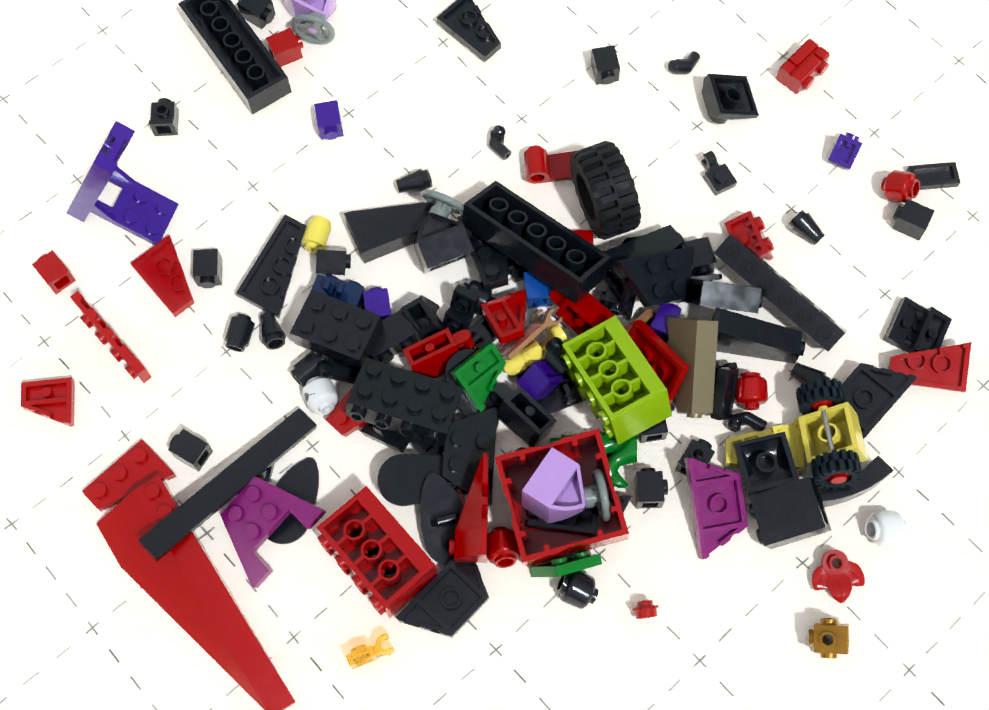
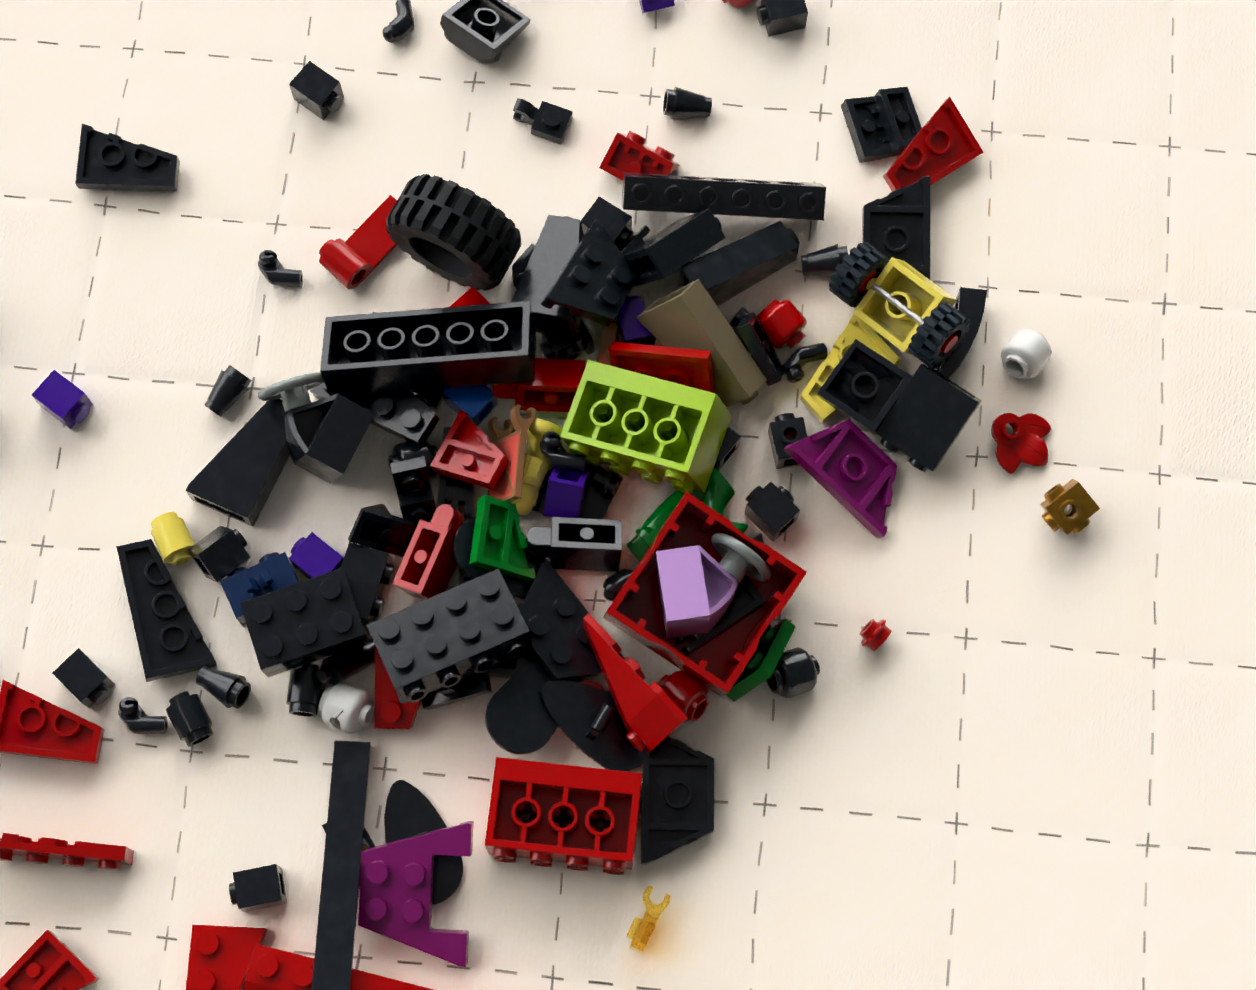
camera: 45 degrees left, 5 degrees up
(214, 312) = (138, 721): none -> black arm

